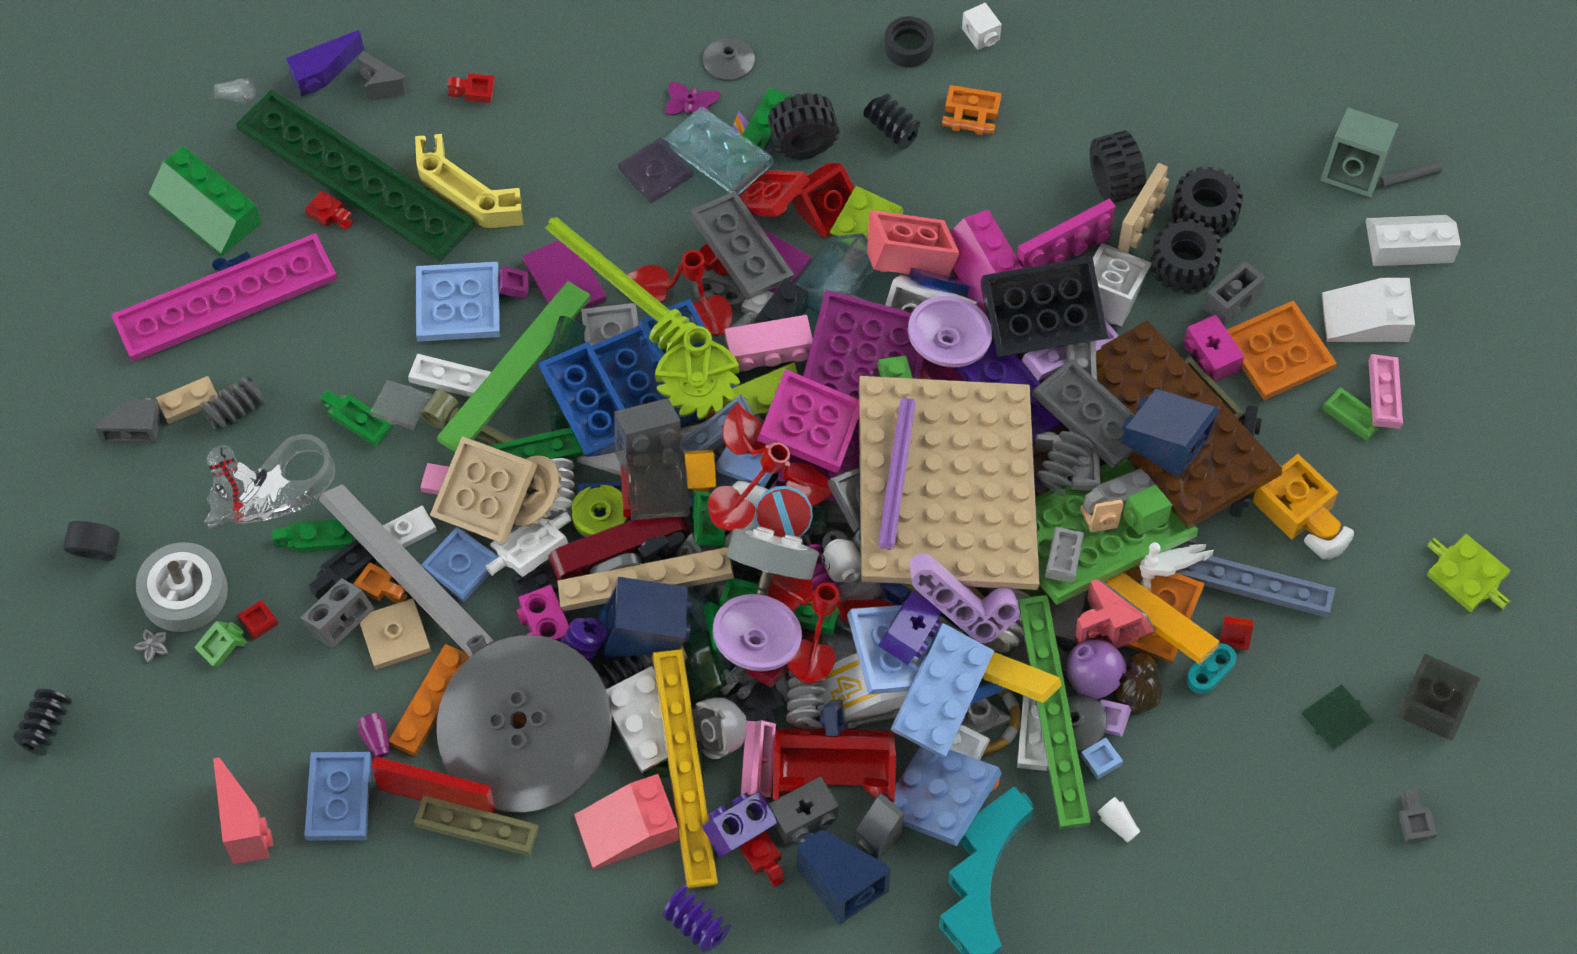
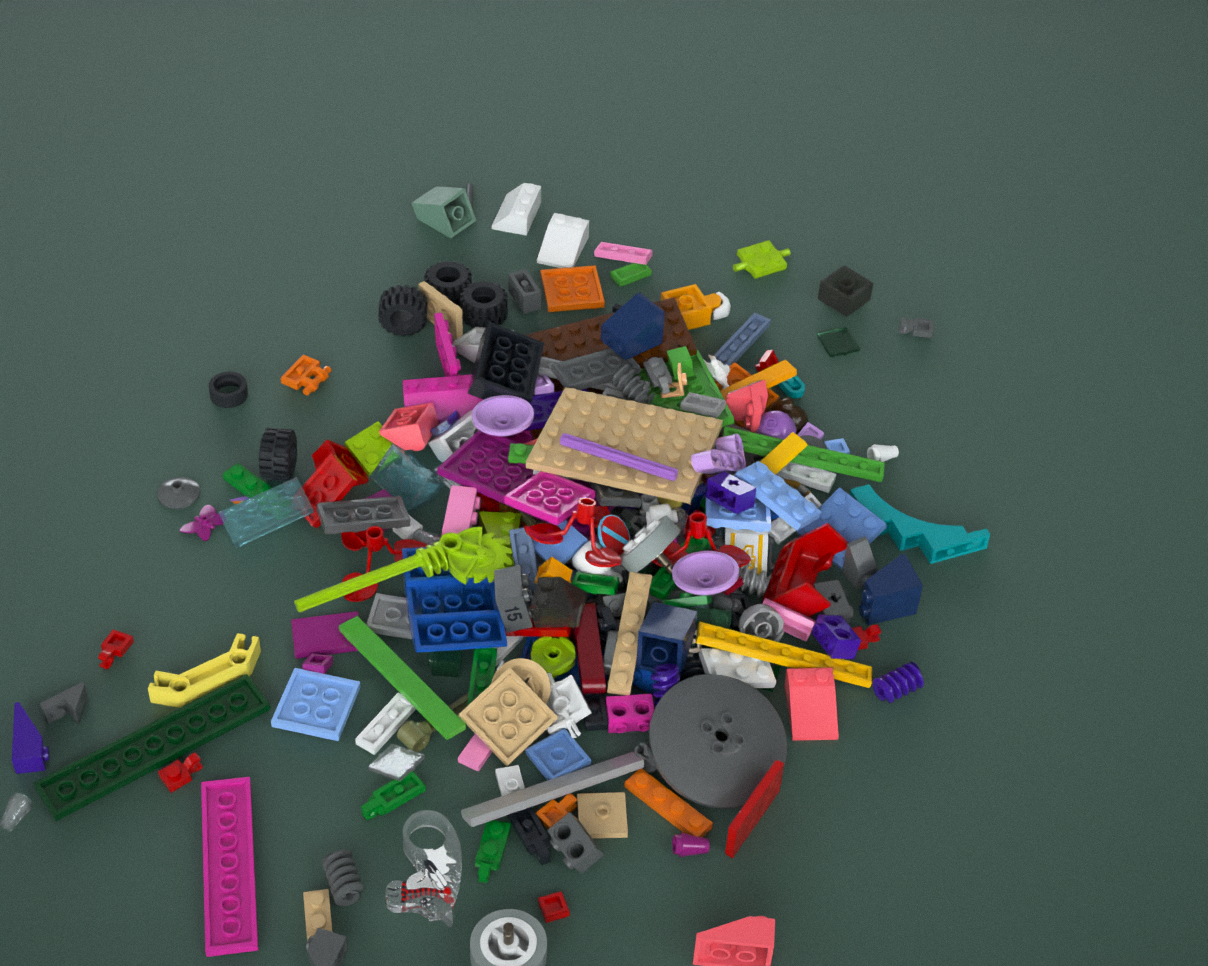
camera: 75 degrees left, 15 degrees down
(204, 201) = (121, 857): green slope -> none
(220, 642) = (569, 934): bright green bracket -> none
(222, 262) = (194, 855): clear blue hand -> none
(338, 796) = (735, 881): medium blue plate -> none
(476, 825) = (786, 797): olive plate -> none
(566, 336) = (395, 643): clear green tile -> none
(655, 170) = (256, 557): clear purple tile -> none
(720, 286) = (384, 555): dark grey plate -> none
(786, 302) = (426, 511): black brick -> none
(833, 717) = (770, 565): dark blue plate -> none
(892, 120) = (293, 412): black piece -> none
(981, 26) = (240, 349): white brick -> none
(1213, 348) = (557, 313): dark pink brick -> none

